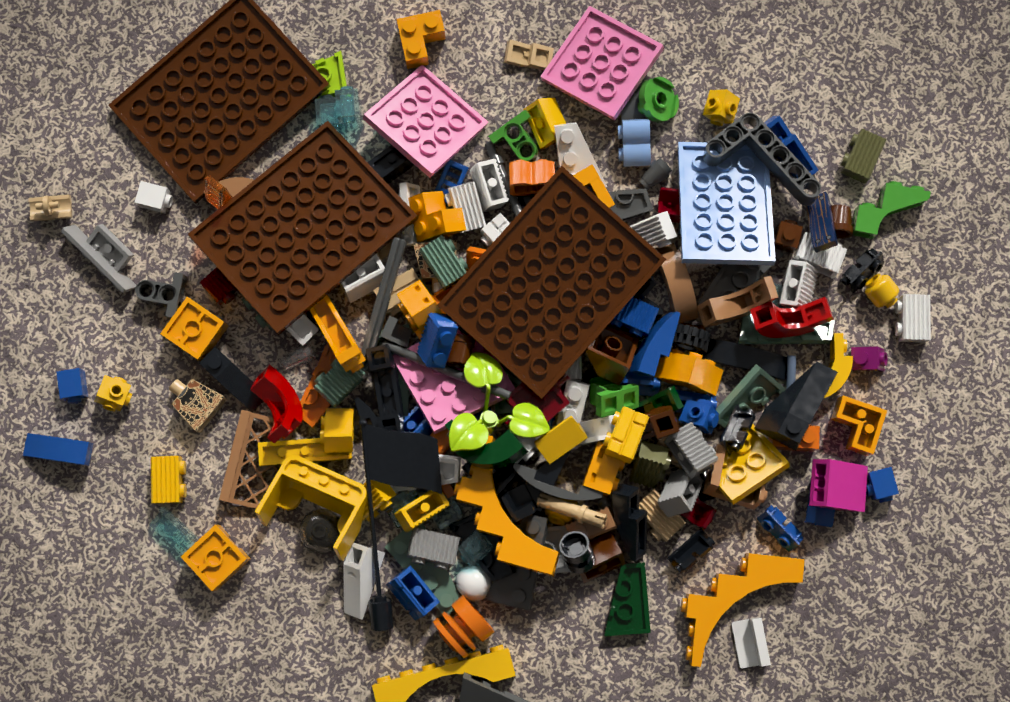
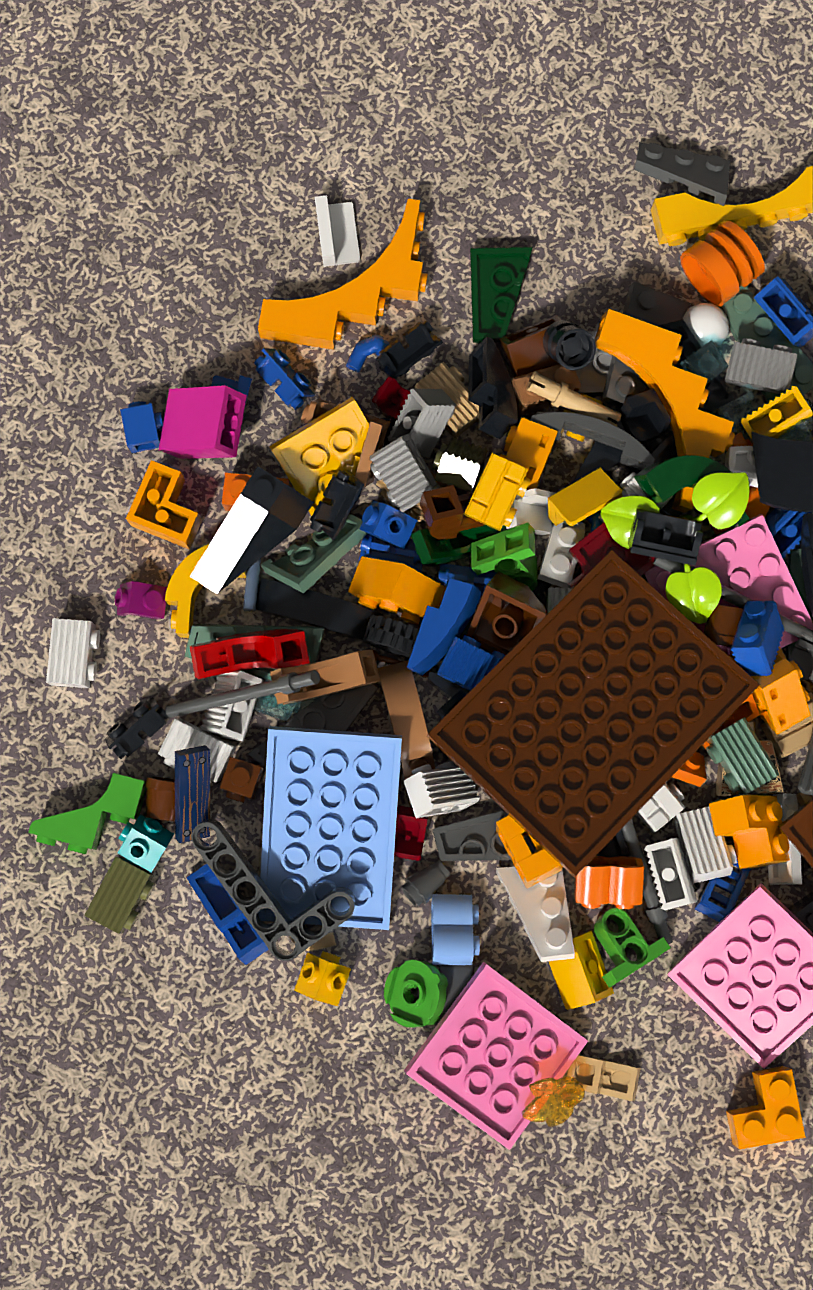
camera: 175 degrees left, 0 degrees up
(505, 407) = (665, 537): none -> black hinge
(562, 37) = (553, 1100): none -> clear yellow plate
(723, 553) = (365, 348): none -> blue arm
(768, 285) = (286, 684): none -> dark grey bar
(850, 190) = (144, 842): none -> teal brick
(881, 291) = (113, 693): yellow head -> none

